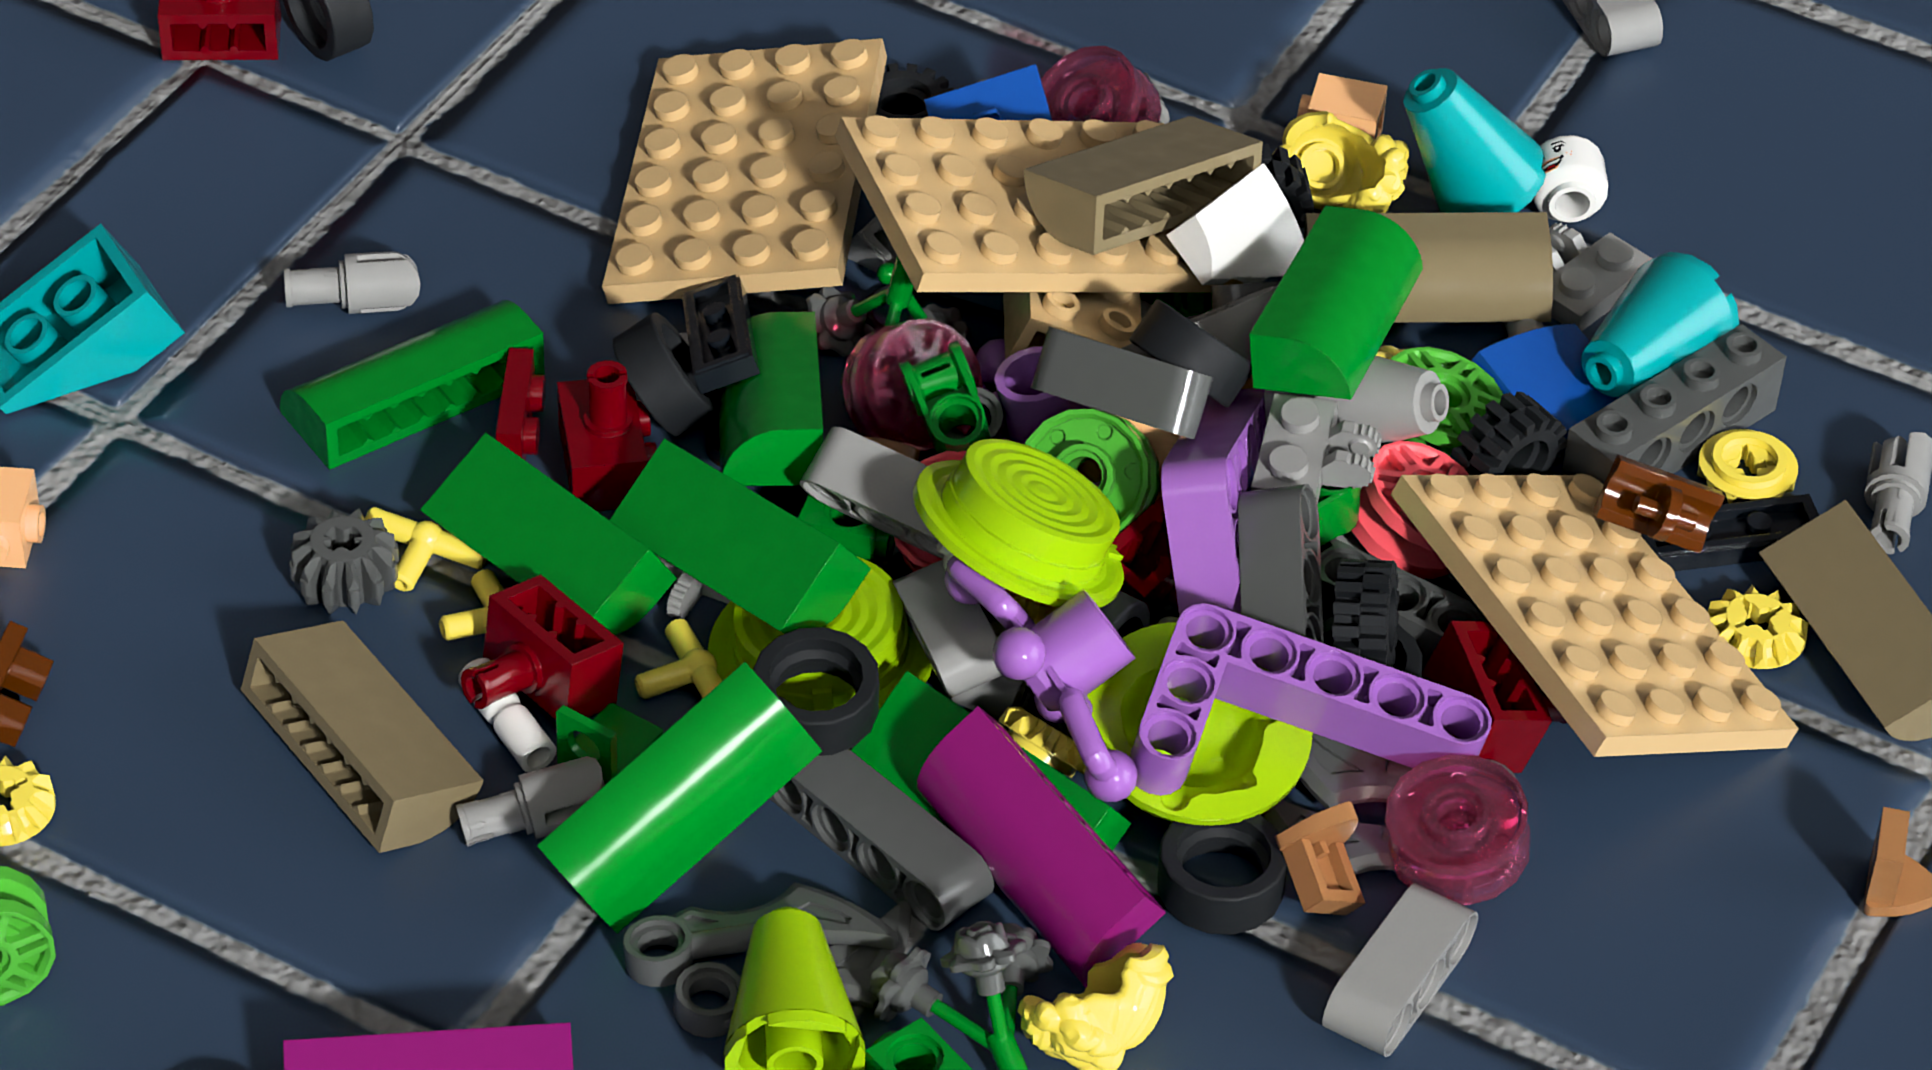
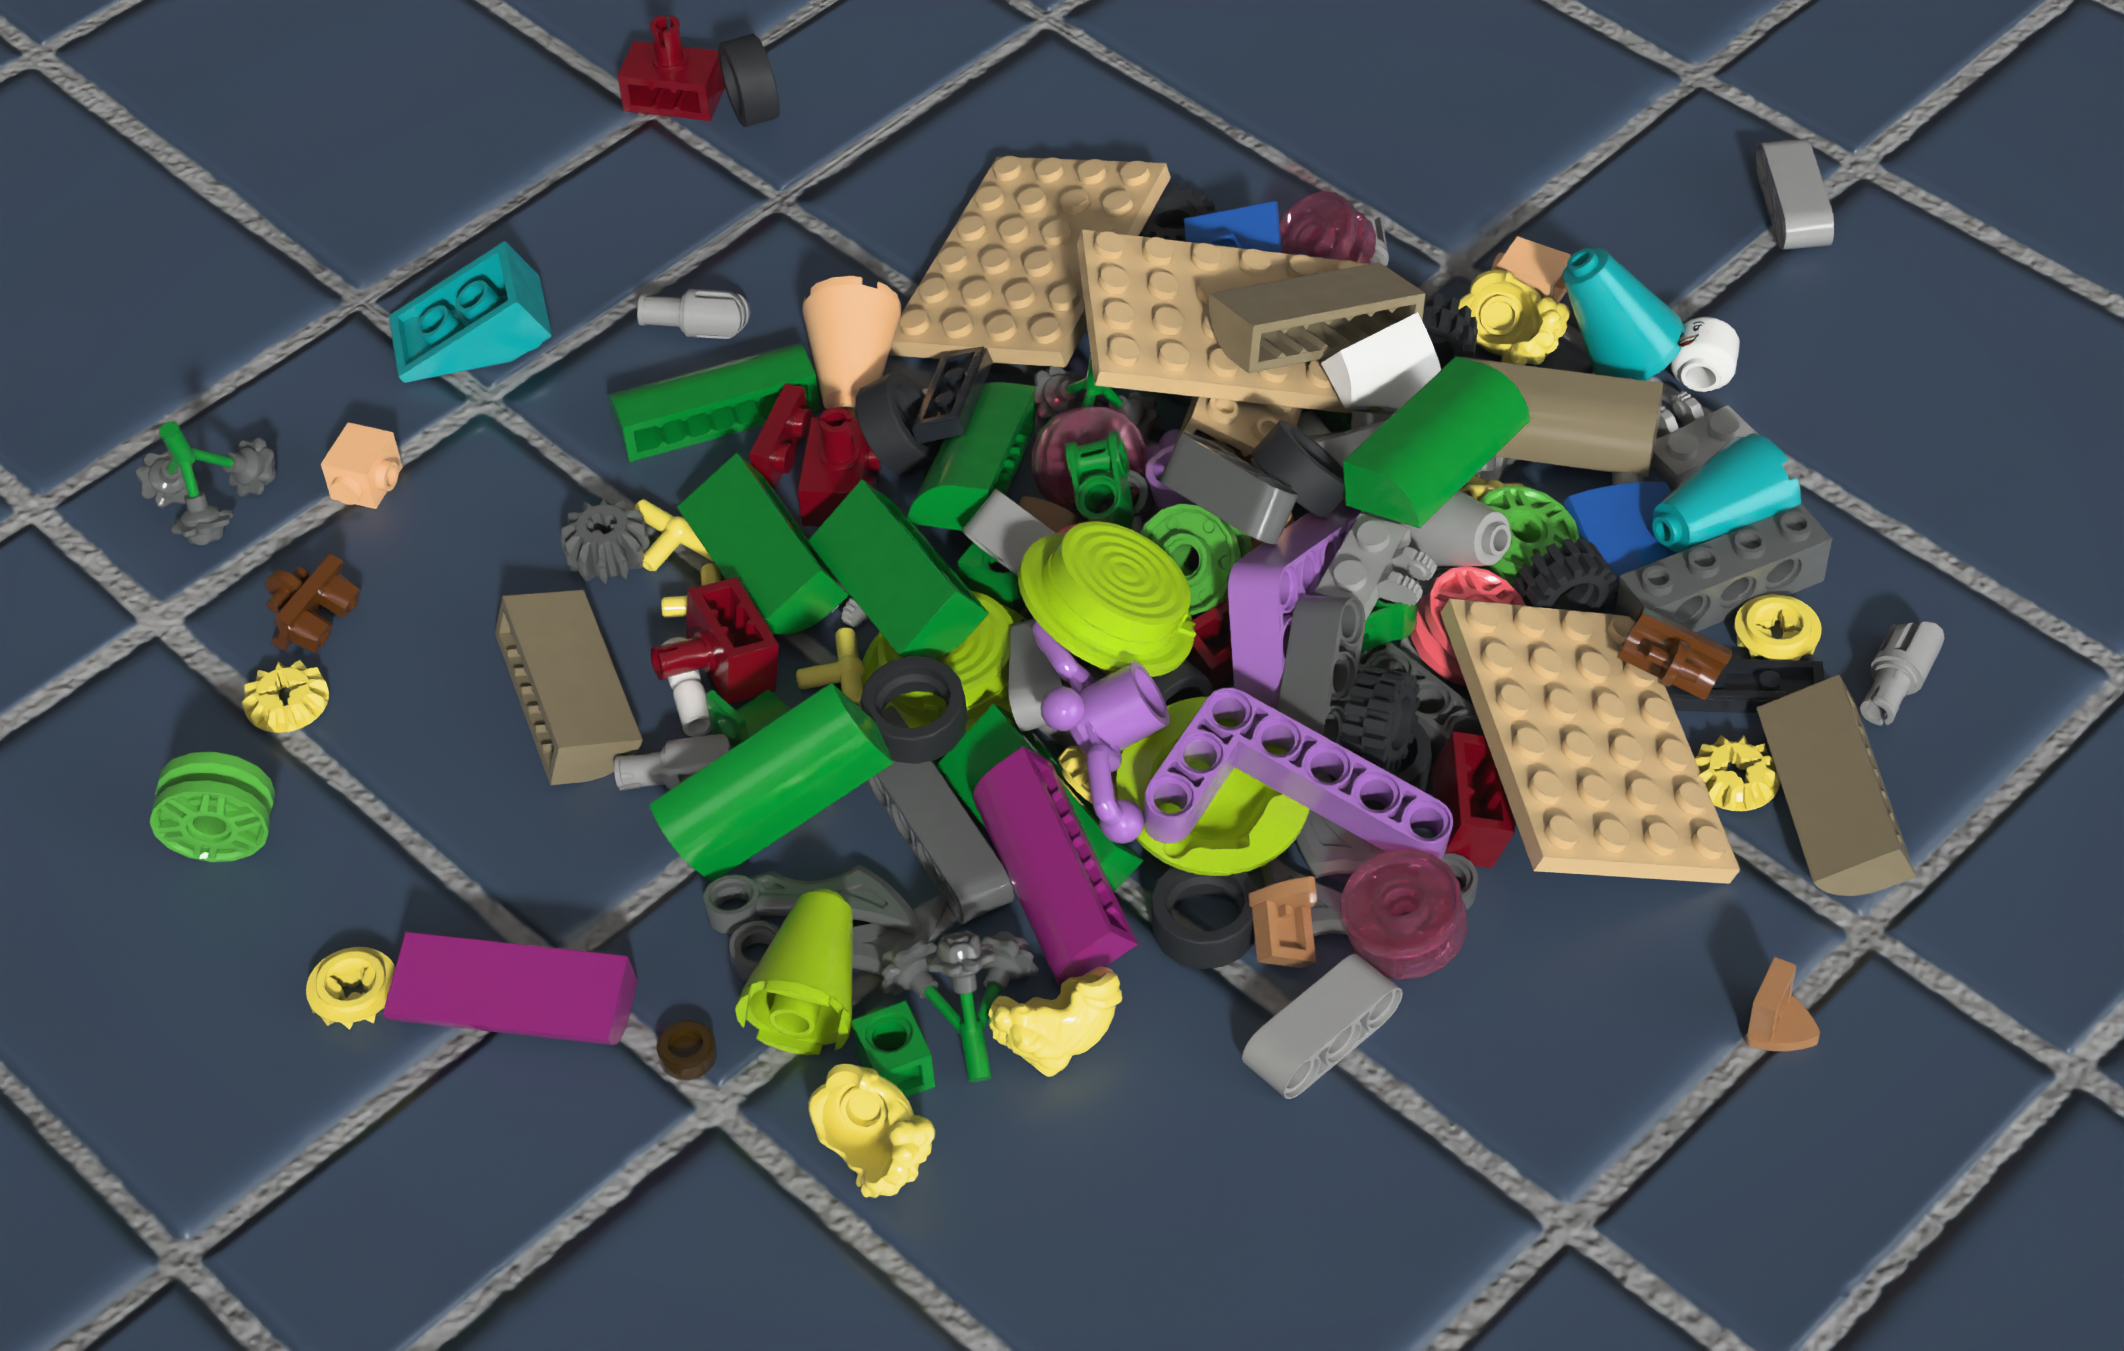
camera: 20 degrees right, 5 degrees up
(567, 284) = (849, 336): none -> light nougat cone

